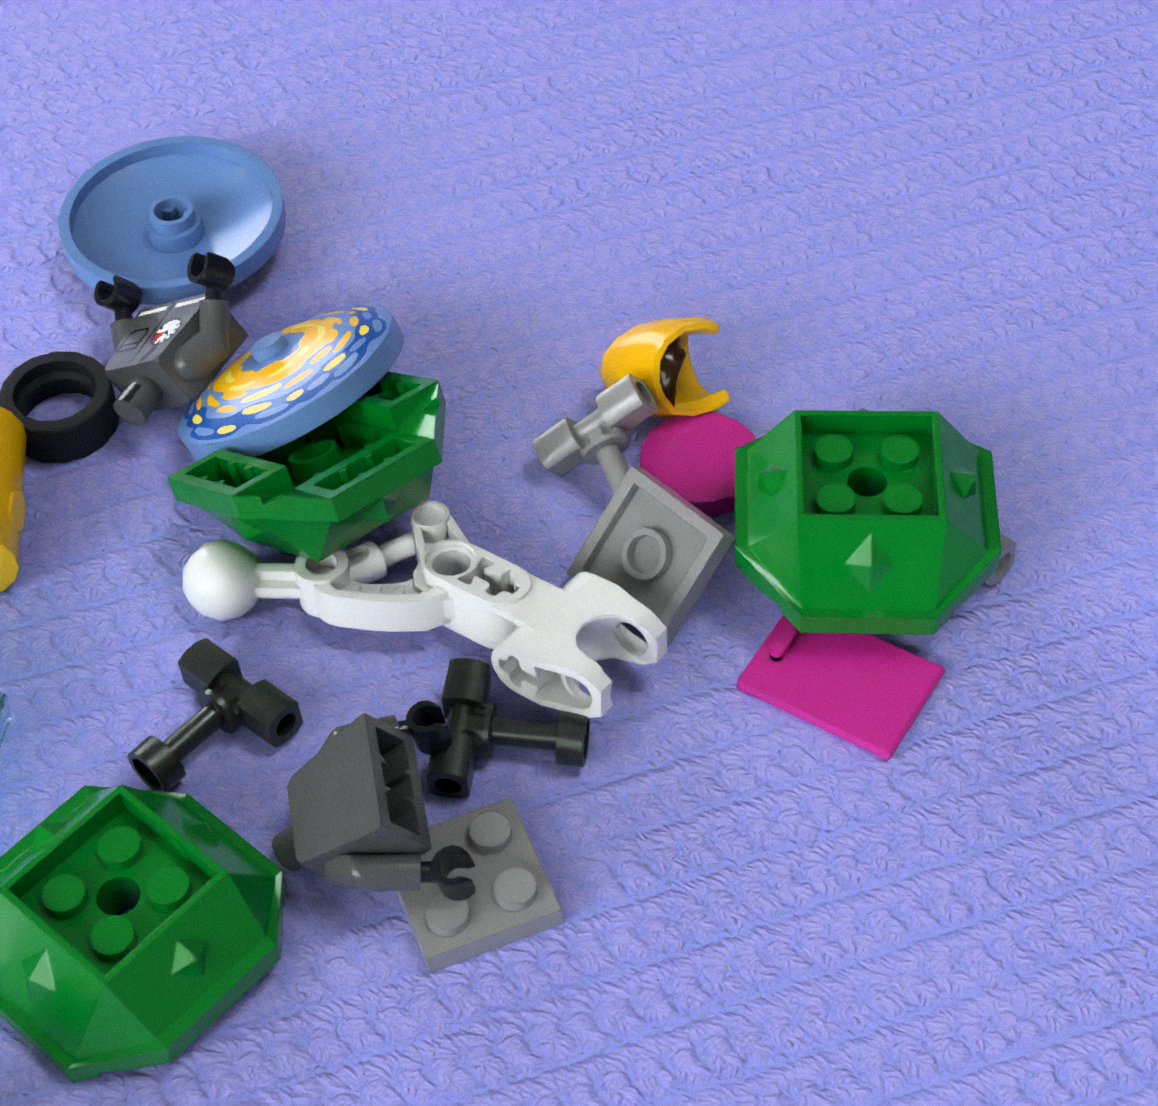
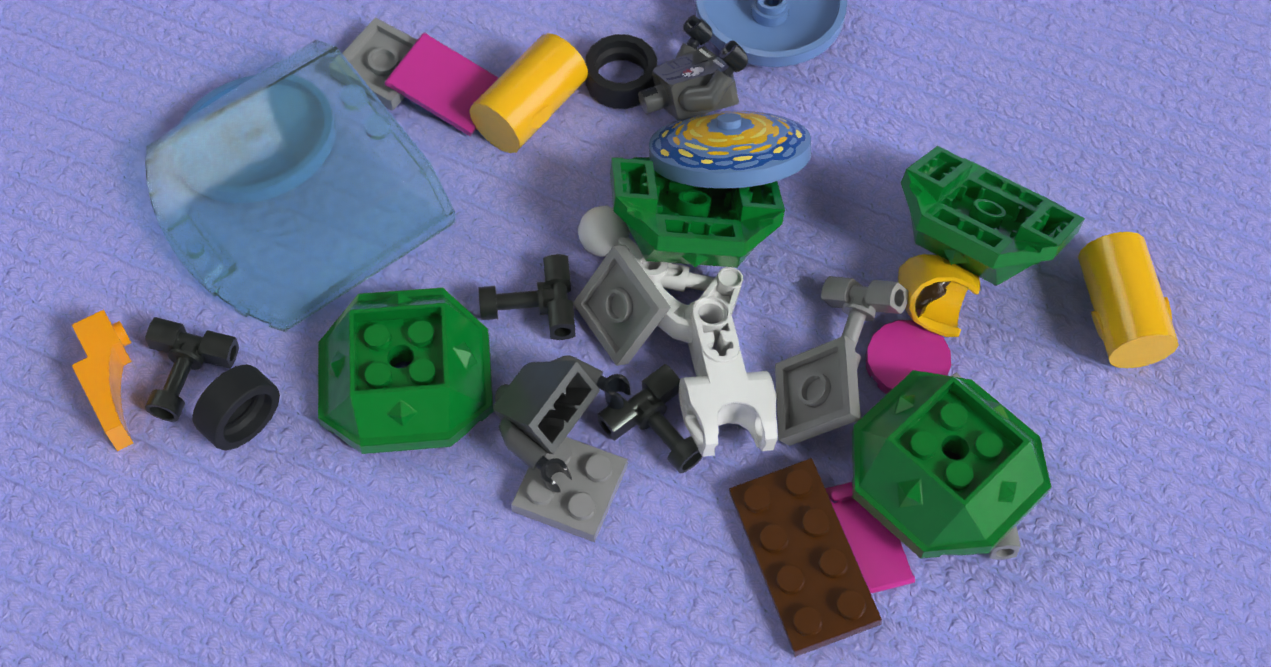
camera: 40 degrees right, 10 degrees up
(334, 634) = (621, 305): none -> light grey plate
(651, 261) = (983, 217): none -> green piece
(812, 737) = (804, 557): none -> reddish brown plate
(857, 242) = (1127, 300): none -> yellow piece

